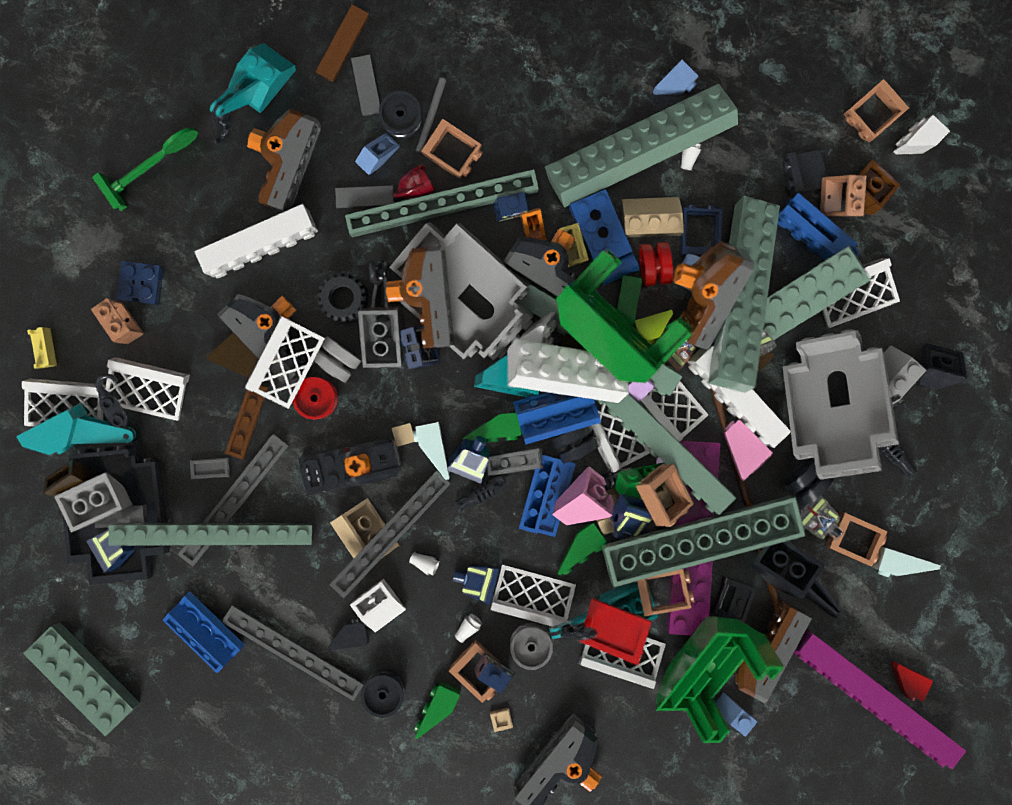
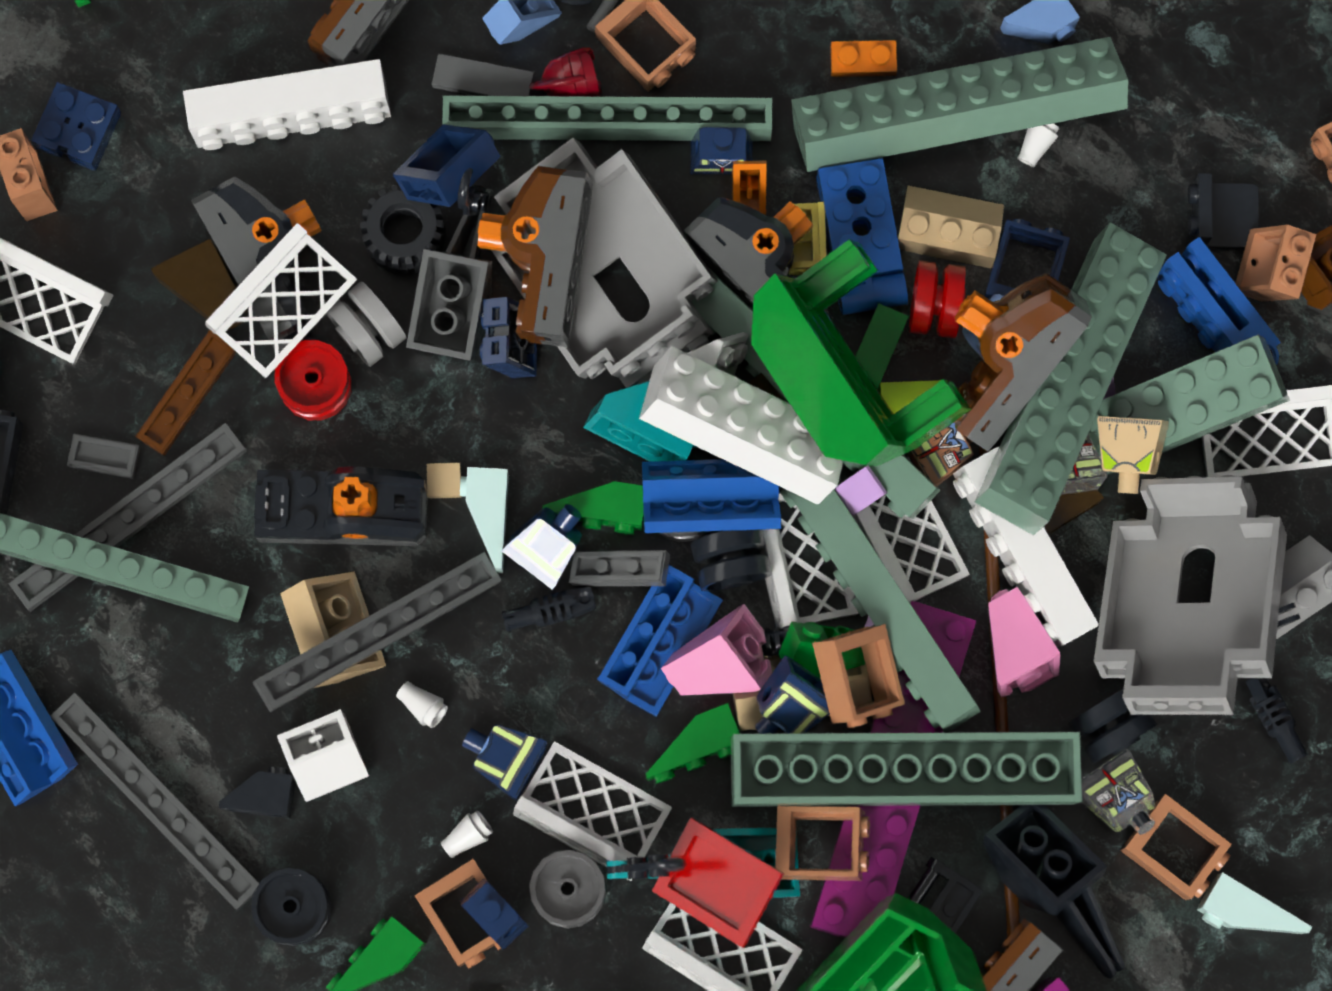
camera: 15 degrees right, 10 degrees down
(357, 274) = (438, 165): none -> dark blue window
(579, 130) = (863, 58): none -> orange plate
(787, 327) = (1131, 448): none -> tan torso

